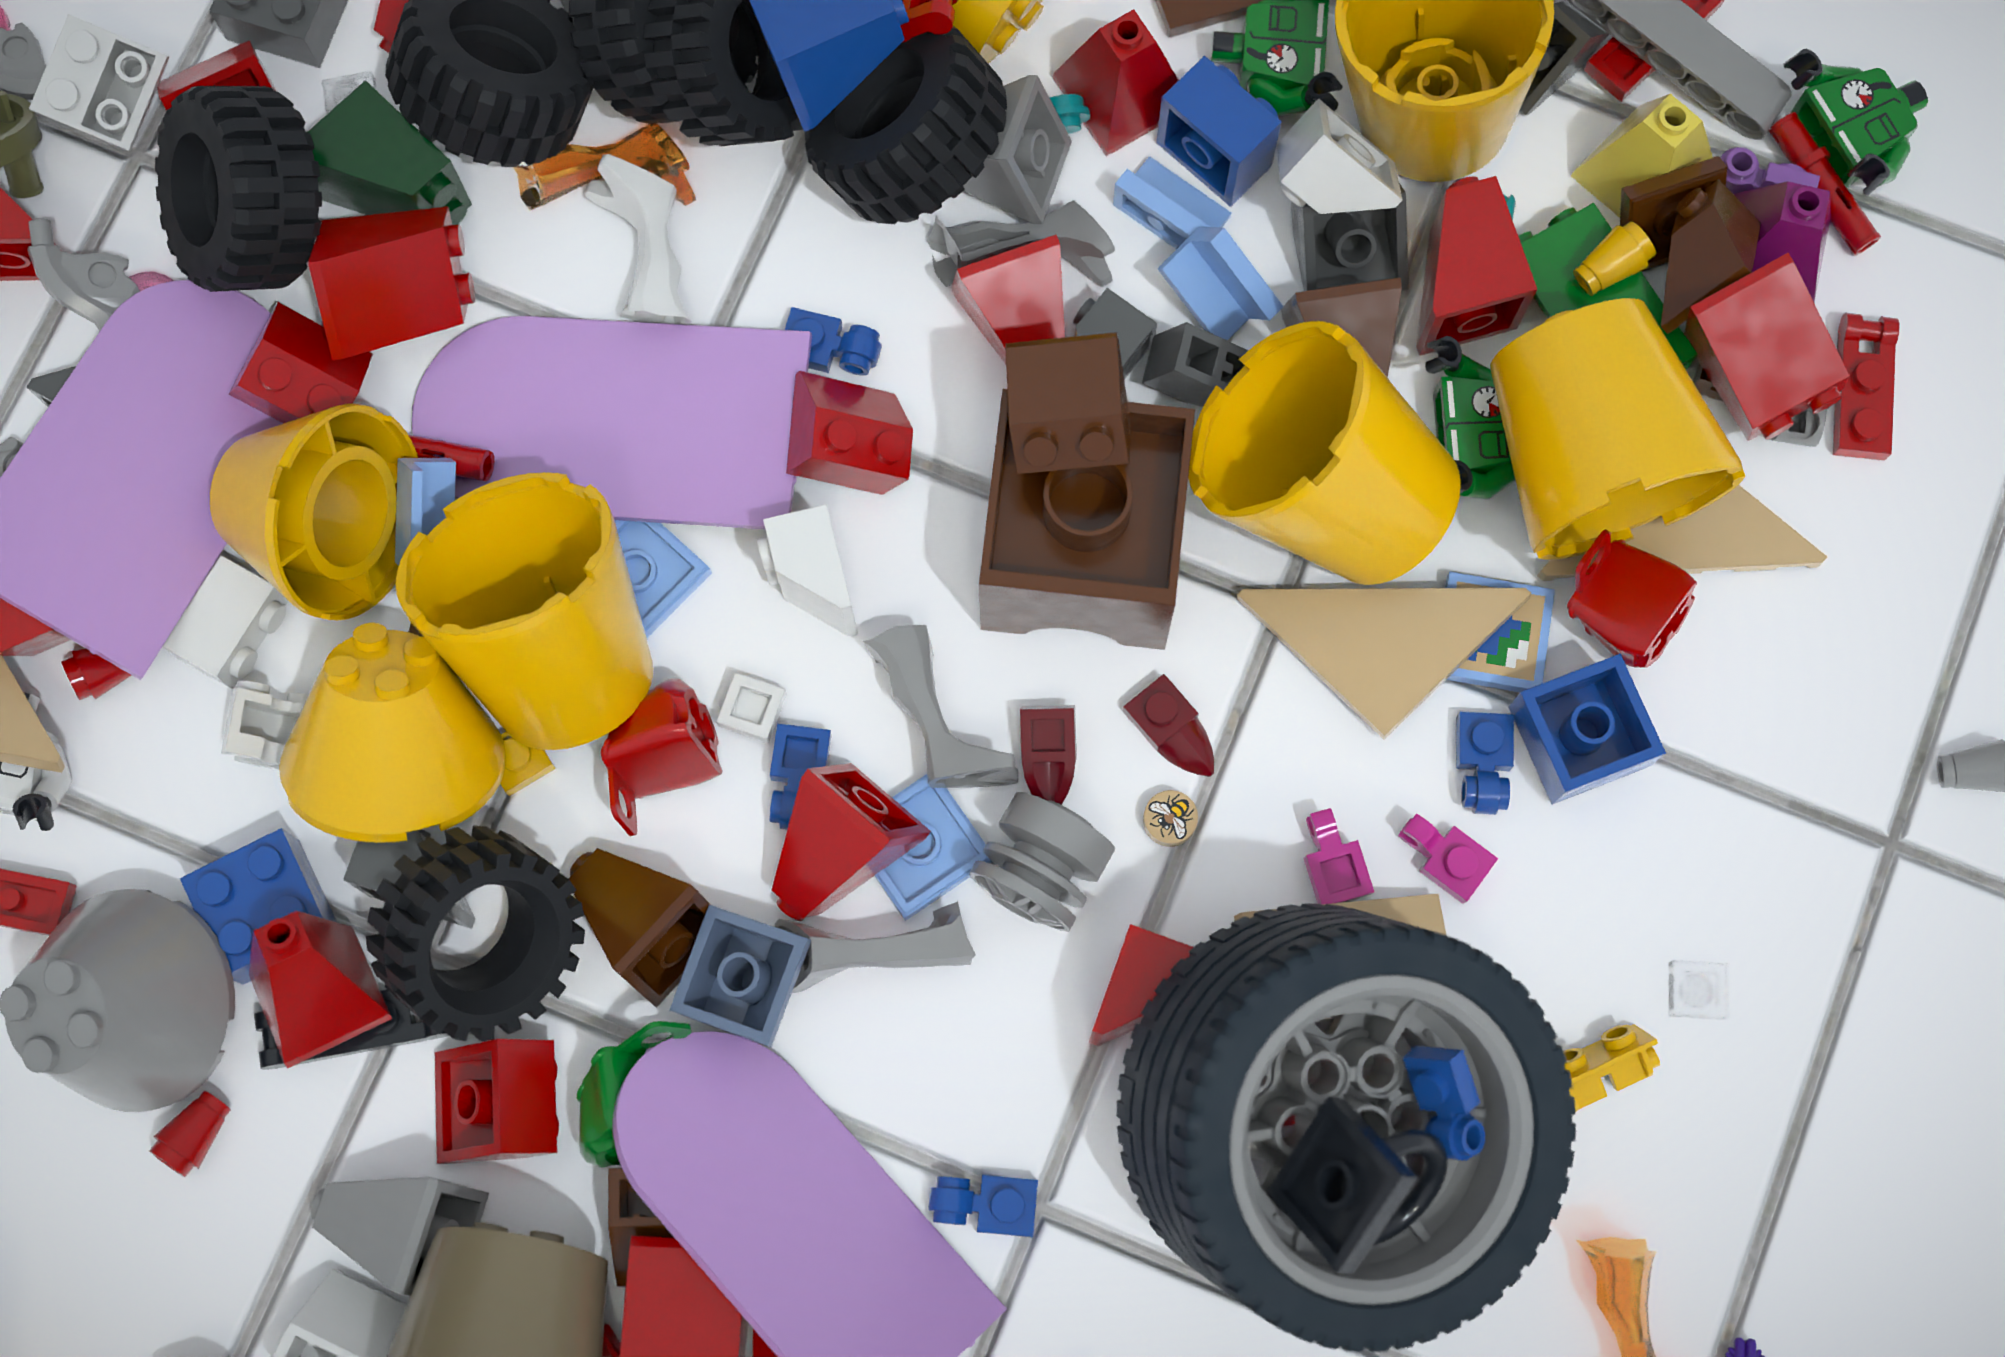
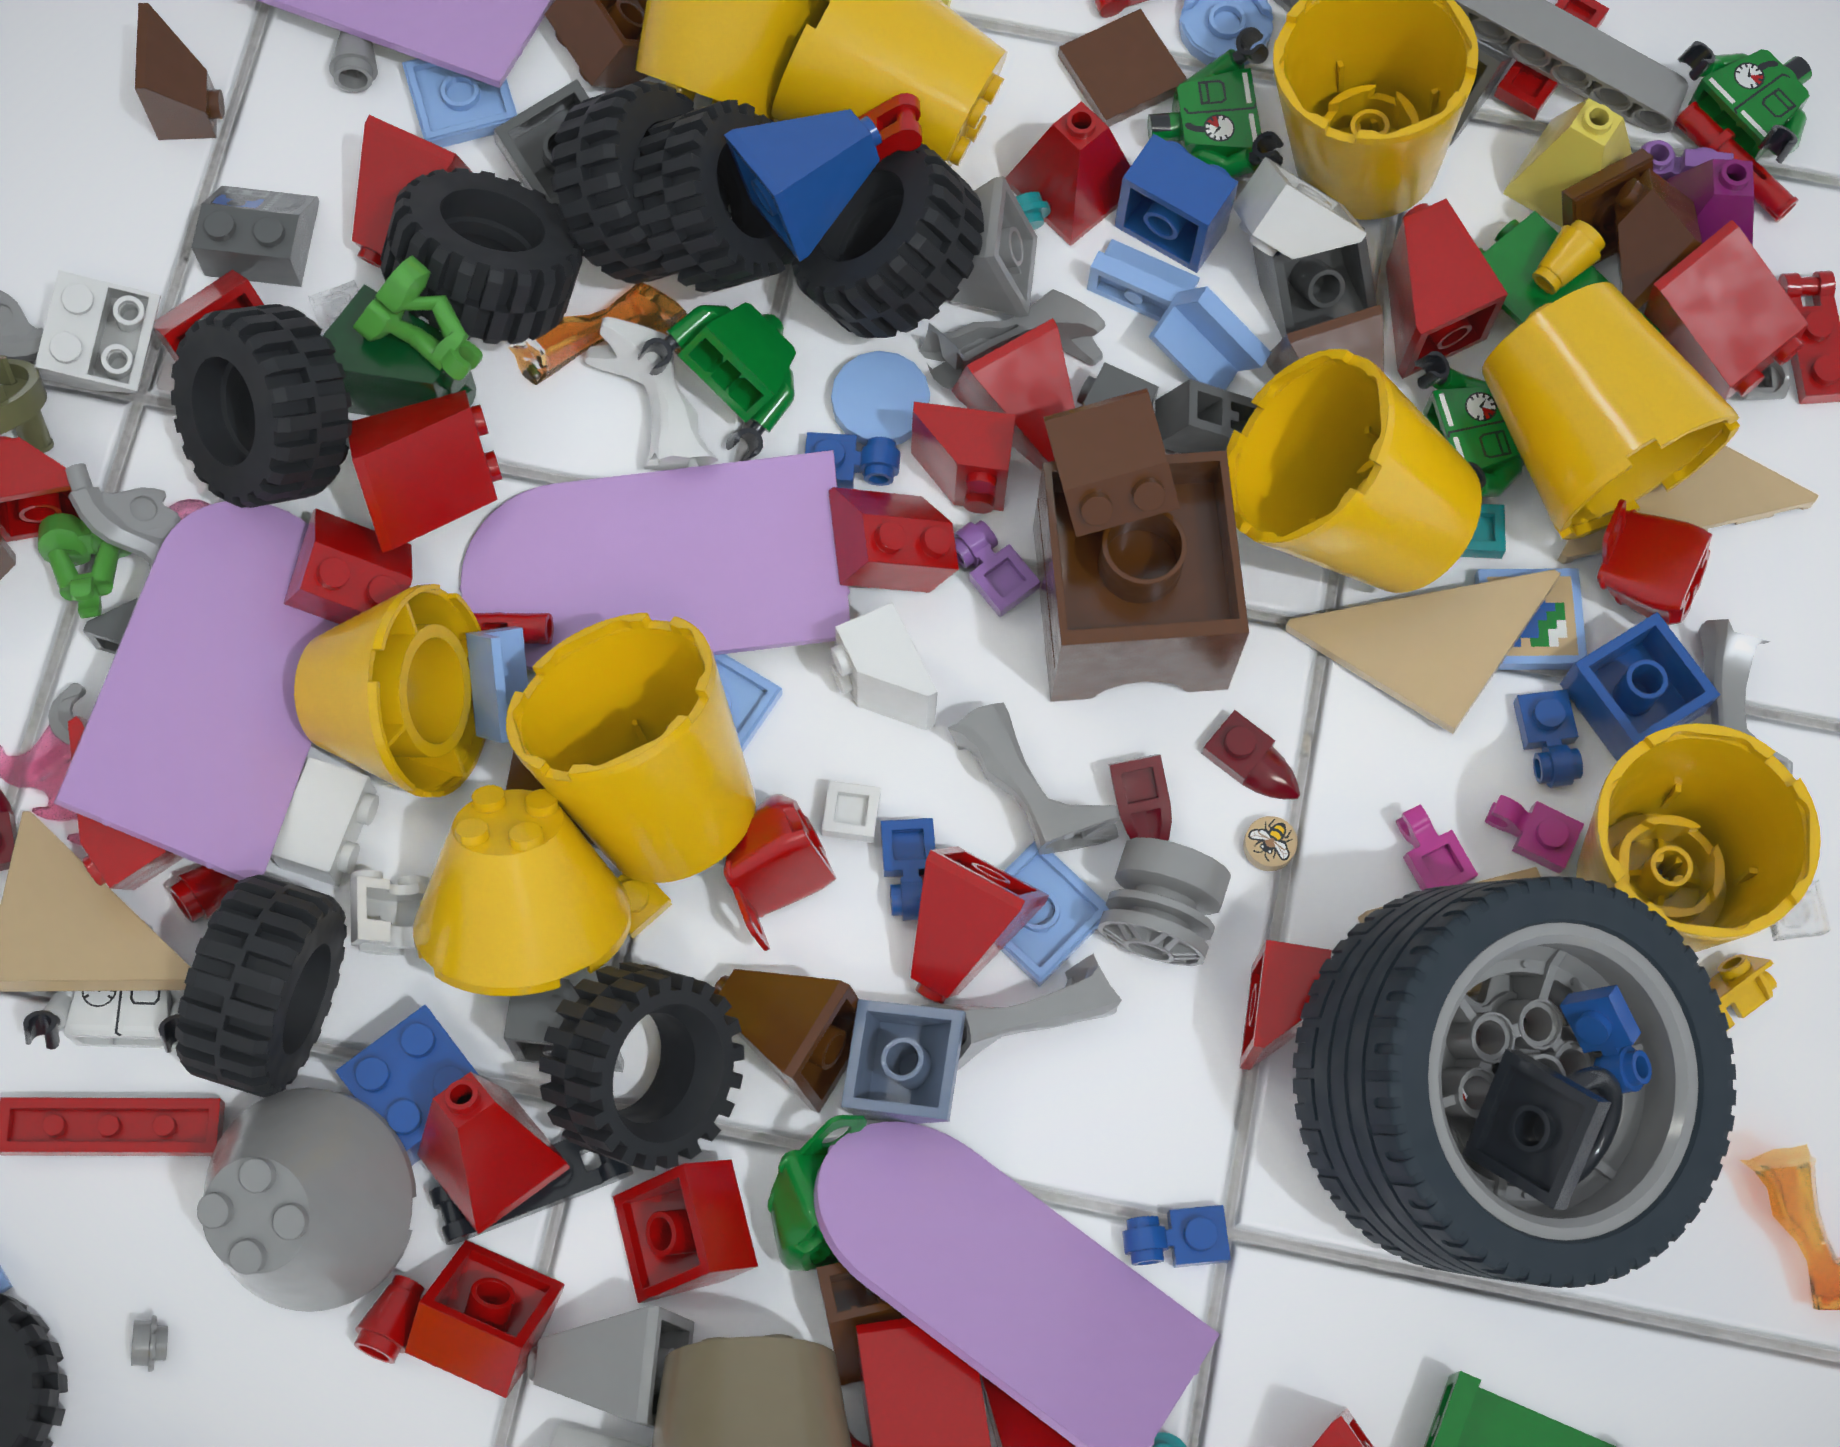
camera: 15 degrees left, 5 degrees down
(29, 299) = (69, 543): none -> bright green piece
(117, 781) = (260, 985): none -> black tyre
(279, 1149) = (483, 1318): none -> red slope
(389, 99) = (402, 293): none -> bright green piece
(733, 219) = (739, 359): none -> green torso
(875, 283) = (877, 396): none -> light blue tile
(946, 359) = (965, 453): none -> red slope
(954, 492) = (1000, 577): none -> medium lavender plate
(1465, 534) = (1489, 536): none -> teal plate
(1628, 886) = (1716, 822): none -> yellow cone
(1684, 725) = (1728, 666): none -> light grey animal

